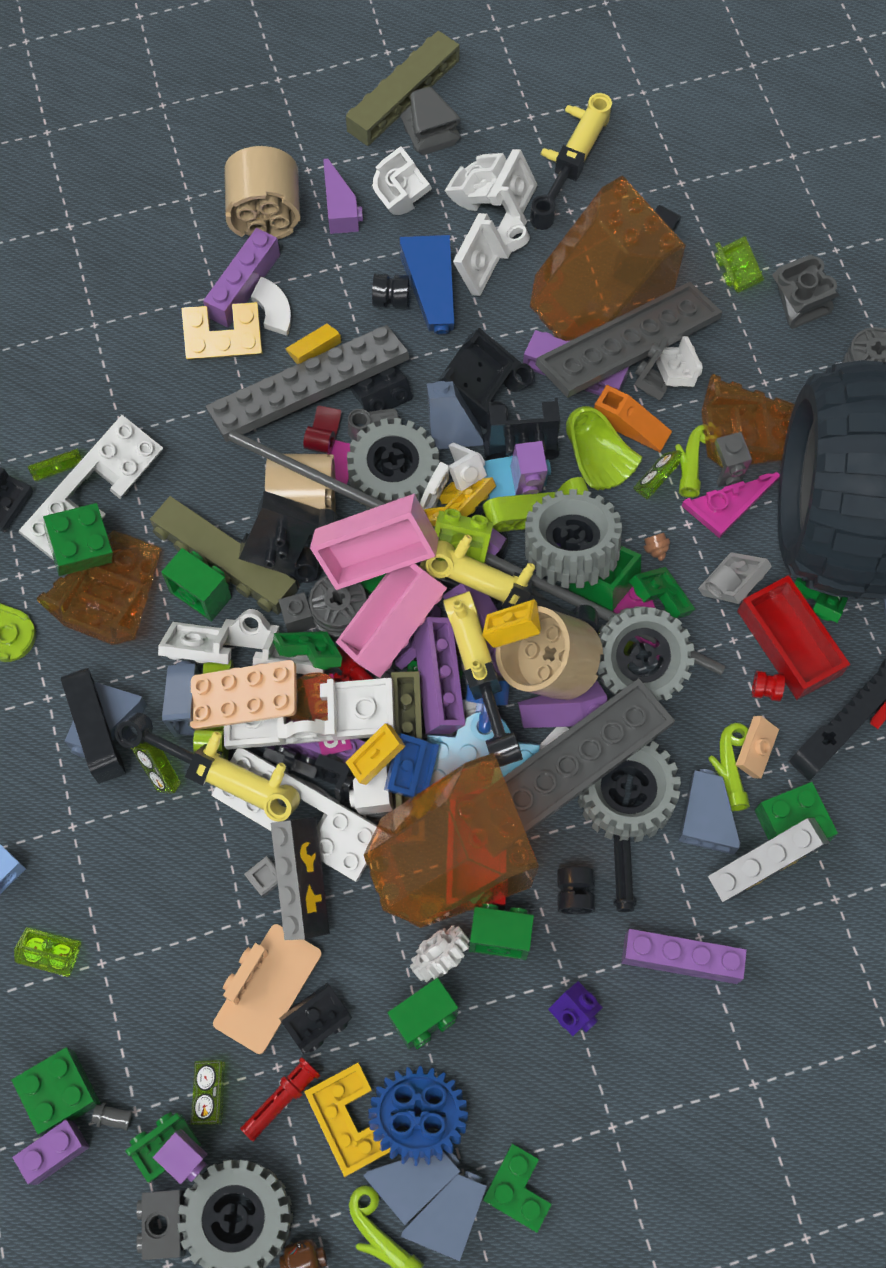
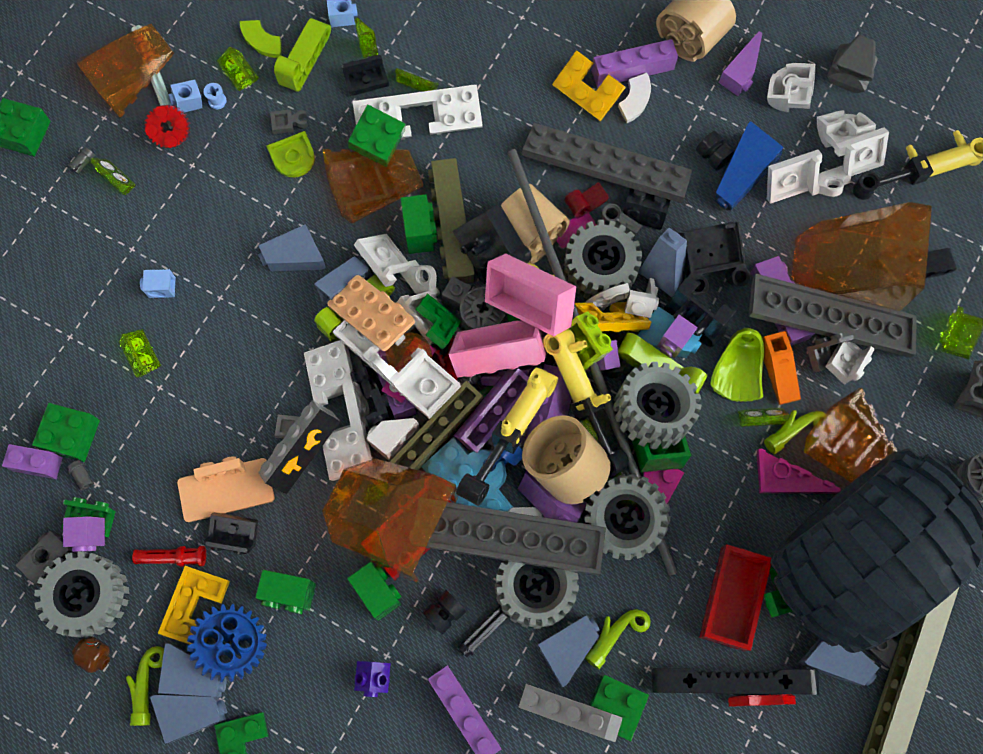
camera: 45 degrees right, 5 degrees up
(92, 726) = (278, 250): black beam -> none
(157, 768) = (291, 307): clear neon green slope -> none
(208, 1092) = (139, 514): slope -> none
(210, 767) = (311, 334): light yellow piece -> none
(314, 344) = (636, 142): yellow slope -> none
(375, 754) = (405, 418): yellow plate -> none
(392, 94) = (842, 28): olive brick -> none
(412, 767) = (419, 446): blue plate -> none
(439, 953) = (330, 567): white gear -> none
(512, 624) = (558, 420): yellow slope -> none
(657, 546) = (714, 459): nougat plate -> none
(662, 585) = (689, 488): green plate -> none
(734, 458) = (816, 452): dark grey bracket -> none
(735, 577) = (739, 526): light grey plate -> none
(757, 747) = (642, 640): light nougat plate -> none
(768, 686) = (689, 611): red wheel -> none

